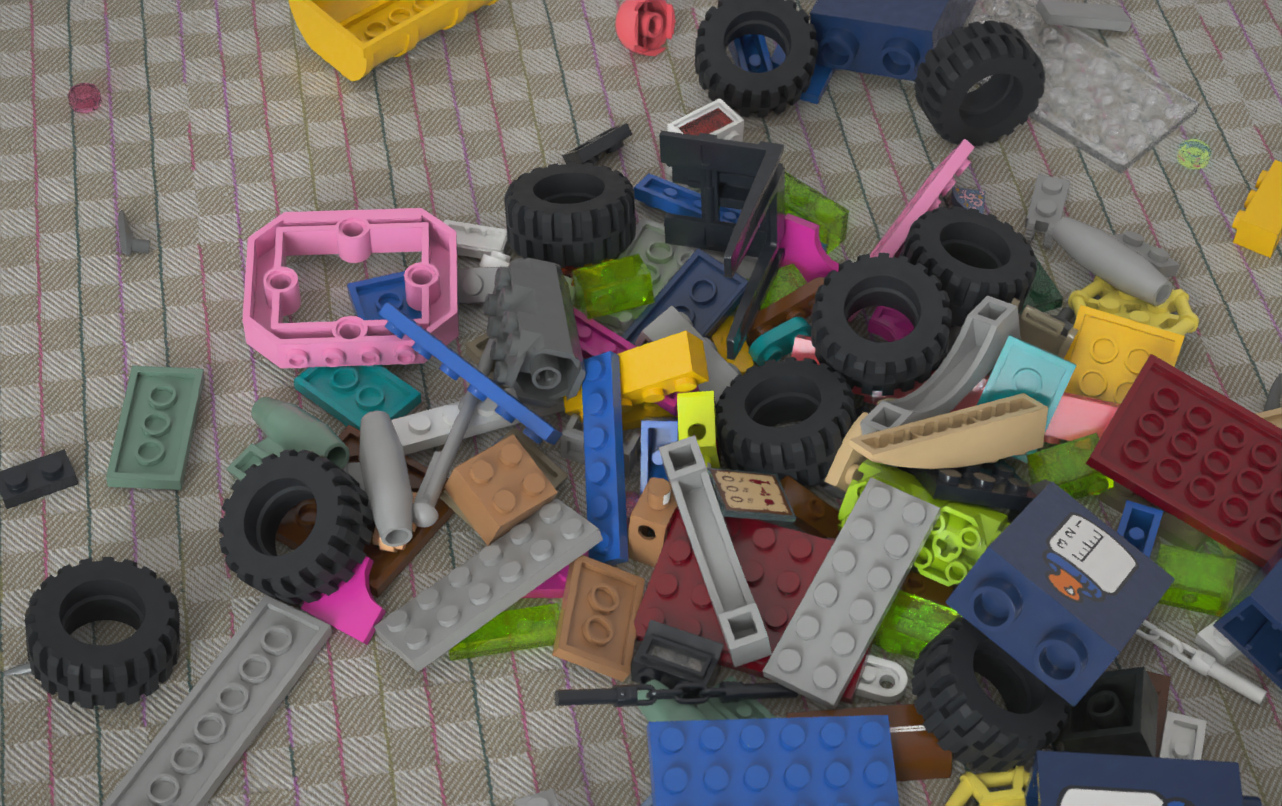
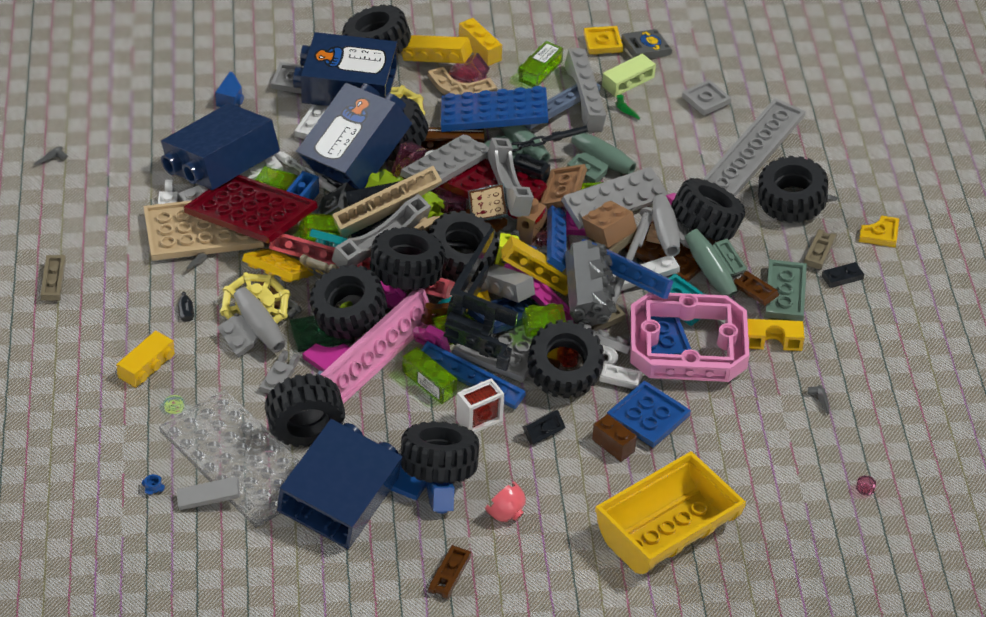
camera: 175 degrees left, 5 degrees down
(69, 525) = (820, 249): none -> dark tan plate
(166, 336) = (787, 332): none -> yellow arch
(218, 407) = (756, 288): none -> reddish brown plate
(426, 176) = (649, 413): none -> blue plate
(483, 131) = (614, 438): none -> reddish brown brick
(525, 709) = (599, 157): none -> sand green plate
(928, 598) = (406, 155): none -> clear pink slope
(1170, 34) = (153, 484): none -> blue plate
(1251, 314) = (185, 308): none -> black piece

